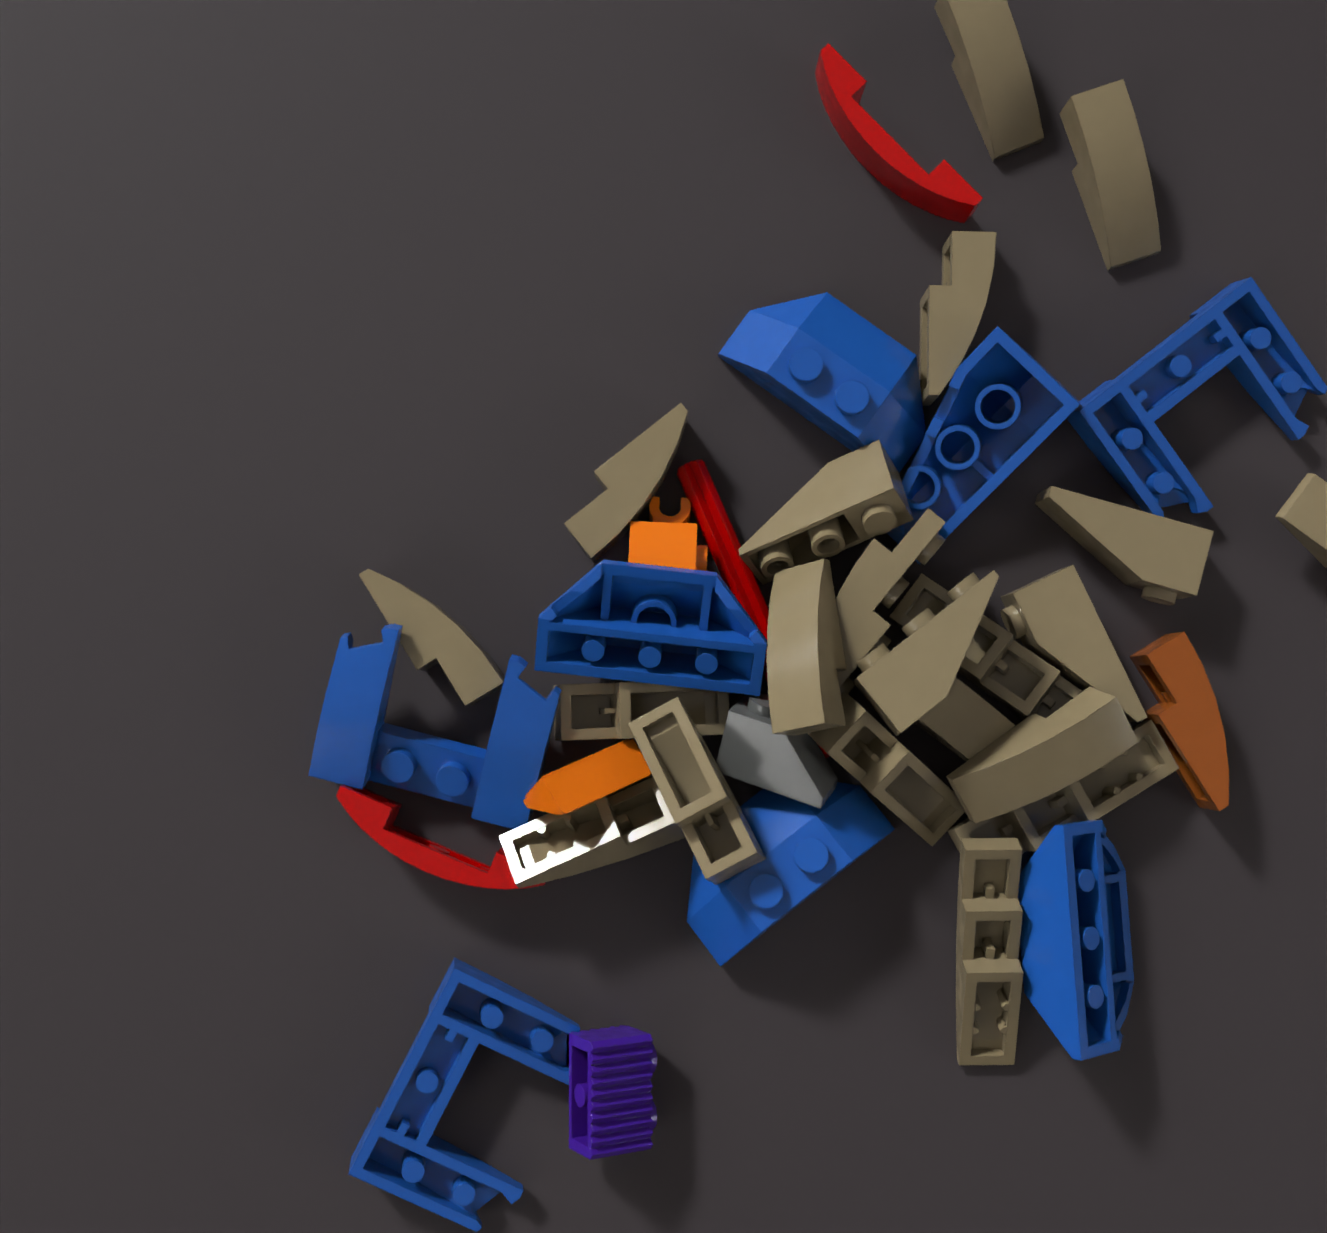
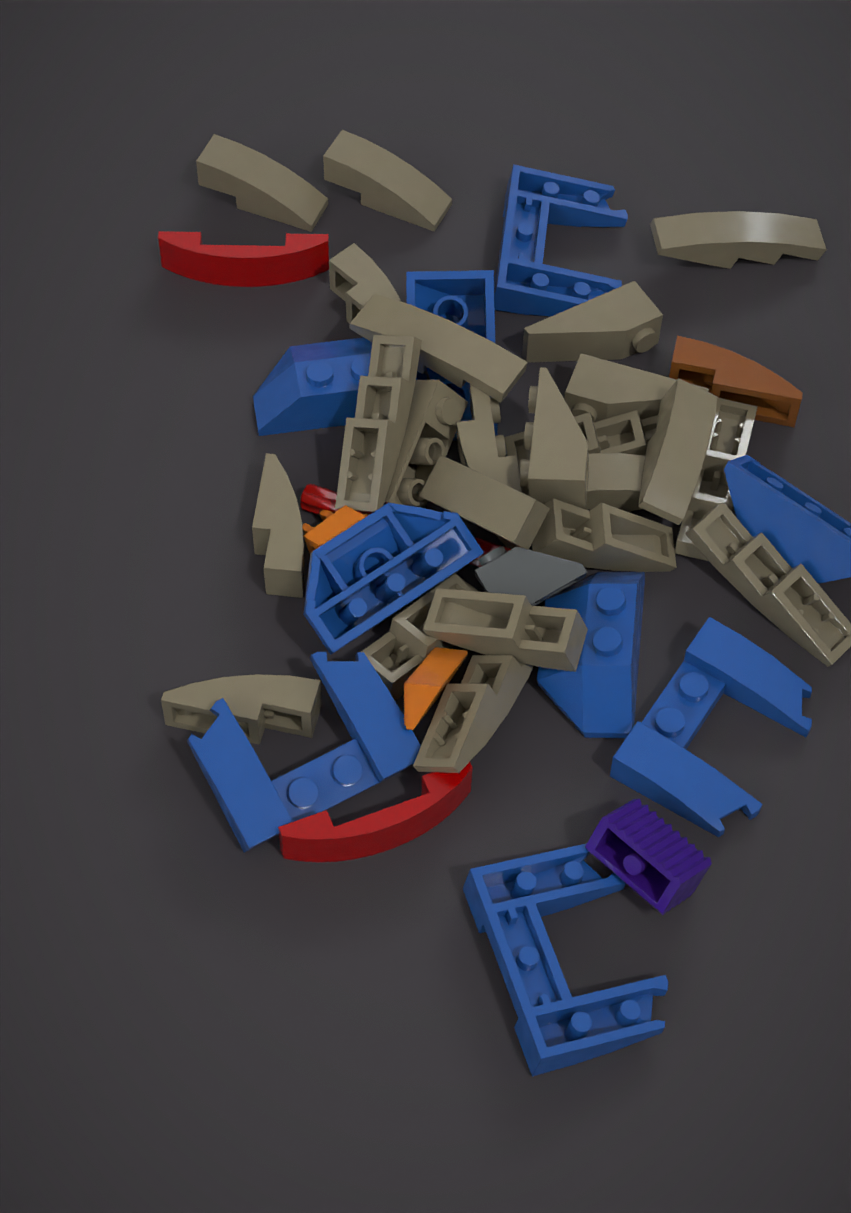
camera: 45 degrees left, 30 degrees down
(804, 473) = (379, 425): none -> dark tan slope
(850, 970) = (655, 753): none -> blue wedge
(939, 441) = (445, 346): none -> dark tan slope

